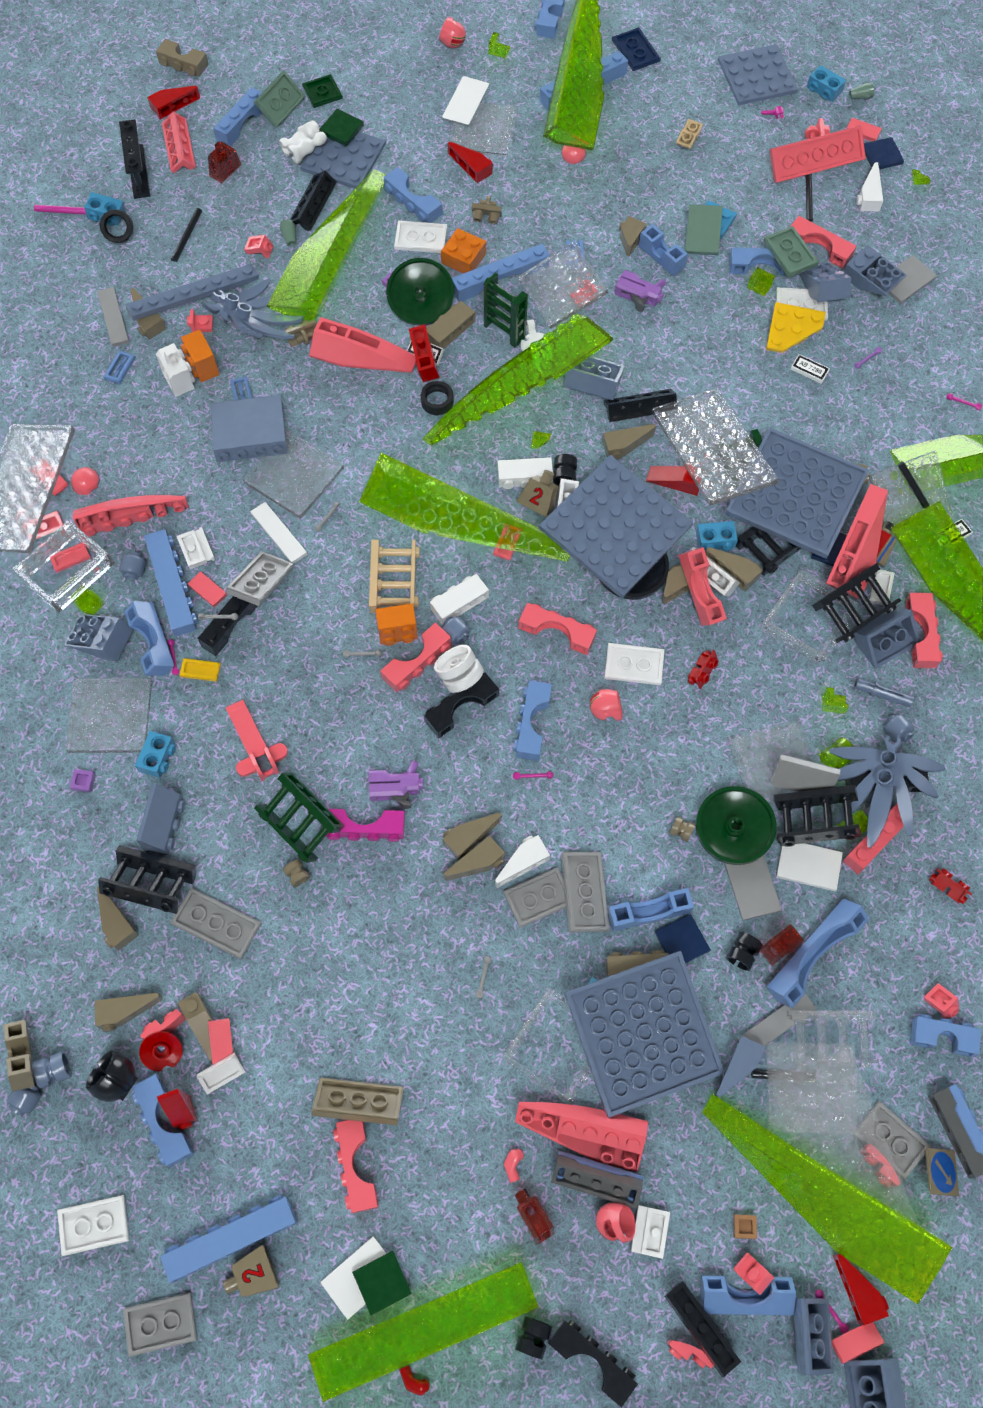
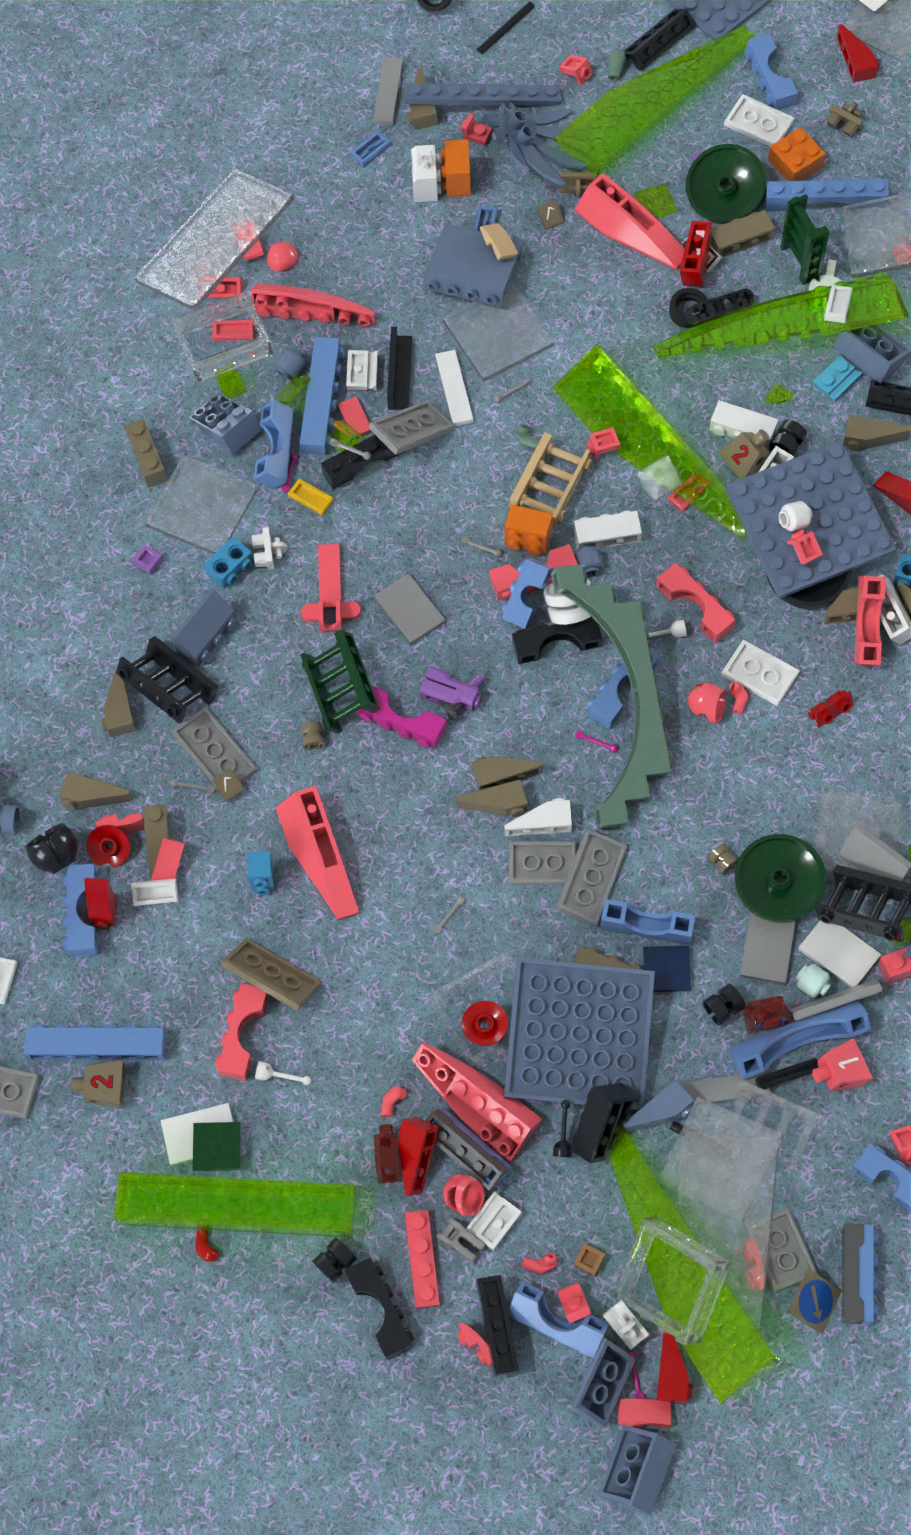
camera: 30 degrees right, 0 degrees up
(40, 690) = (146, 453): none -> dark tan arch
(144, 586) = (292, 389): none -> clear neon green piece
(177, 723) = (263, 540): none -> white hips
(206, 606) = (345, 434): none -> clear neon green panel
(227, 536) = (399, 371): none -> black fence
(228, 958) = (210, 789): none -> light grey hinge
(243, 949) = (228, 785): none -> dark tan slope
(259, 397) = (500, 241): none -> tan slope
(291, 366) = (550, 214): none -> dark tan slope
(308, 1014) = (261, 872): none -> dark azure brick
(327, 730) = (409, 609): none -> light grey tile
(346, 972) = (316, 850): none -> coral wedge
(356, 551) = (525, 438): none -> sand green arm
(371, 323) = (656, 200): none -> clear neon green piece
(392, 1190) = (265, 1072): none -> white hinge
(419, 693) = (518, 608): none -> medium blue arch
(421, 529) = (603, 442): none -> coral bracket
(460, 385) = (720, 308): none -> black beam
(480, 540) = (659, 478): none -> clear piece
(524, 678) = (626, 629): none -> sand green arch
(553, 656) = (677, 629): none -> white hinge
(555, 350) = (838, 304): none -> white tile
(557, 1202) = (416, 1149): none -> red slope
(562, 1050) = (484, 1012): none -> red dish
(577, 409) = (837, 378): none -> medium azure plate
(606, 1297) = (422, 1259): none -> coral plate
(607, 527) = (795, 516): none -> white head
(622, 1262) = (459, 1233): none -> light grey piece
(625, 547) = (805, 545): none -> coral bracket
(628, 689) = (740, 696): none -> coral arm
(675, 1138) = (562, 1147): none -> black hinge
(699, 1100) = (601, 1119): none -> black wedge
(708, 1251) = (542, 1265): none -> coral arm
(803, 898) = (813, 980): none -> light aqua head
(805, 1271) = (625, 1324): none -> white hips
(822, 986) = (786, 1074): none -> black axle
(829, 906) = (835, 1000): none -> light grey tile
(837, 1184) = (708, 1293): none -> clear window
(863, 960) = (843, 1068): none -> coral torso

